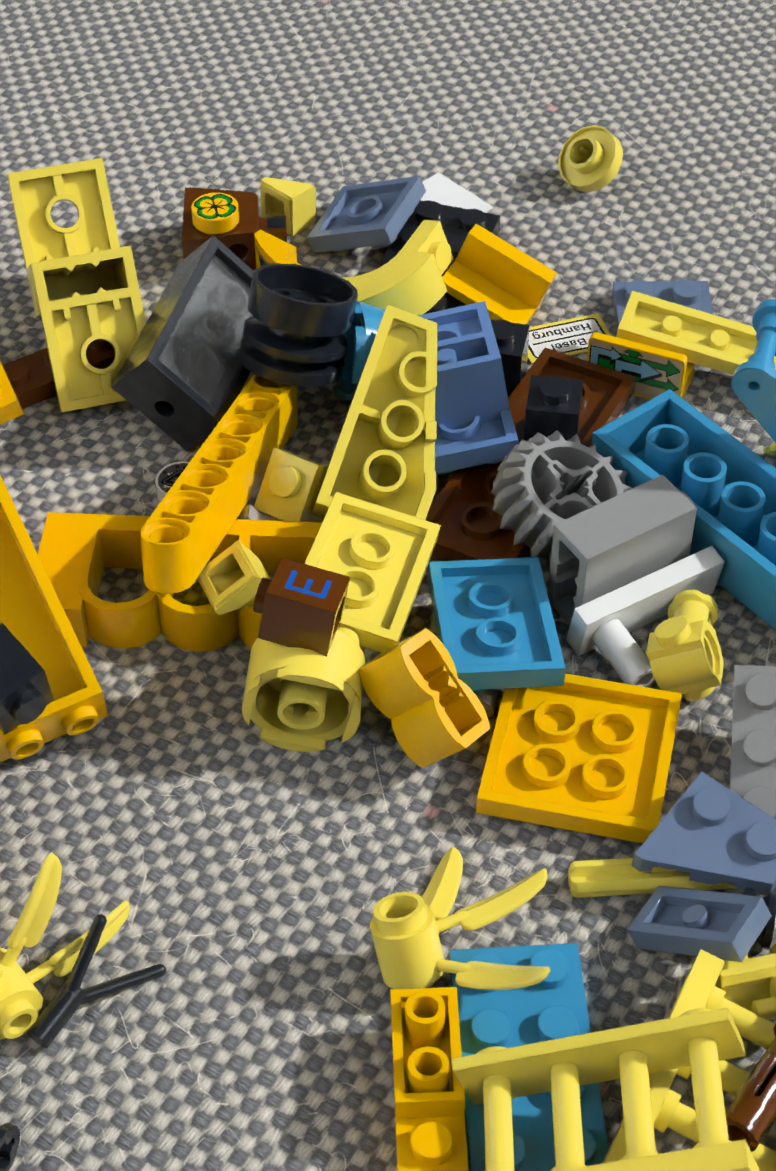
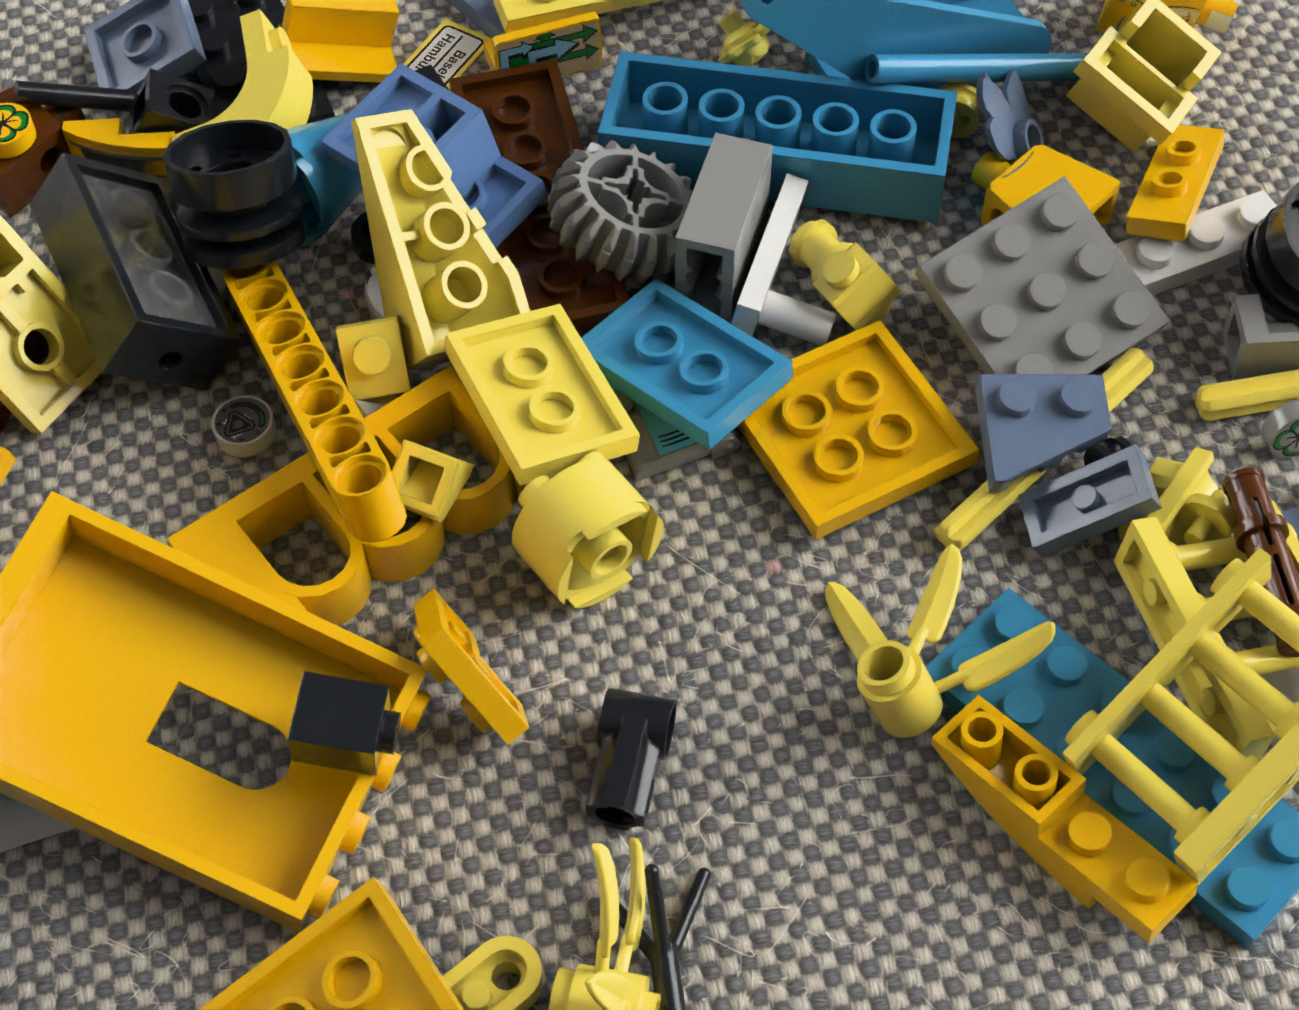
camera: 40 degrees left, 10 degrees up
(132, 698) = (453, 653): none -> yellow plate
(202, 843) = (632, 739): none -> black piece
(289, 199) = (49, 66): light yellow slope -> none
(301, 606) = (557, 458): reddish brown brick -> none
(302, 231) = (73, 96): none -> black bar
(337, 254) = (169, 104): none -> black brick
(424, 699) = (702, 470): yellow brick -> none
(553, 406) = (542, 134): black brick -> none

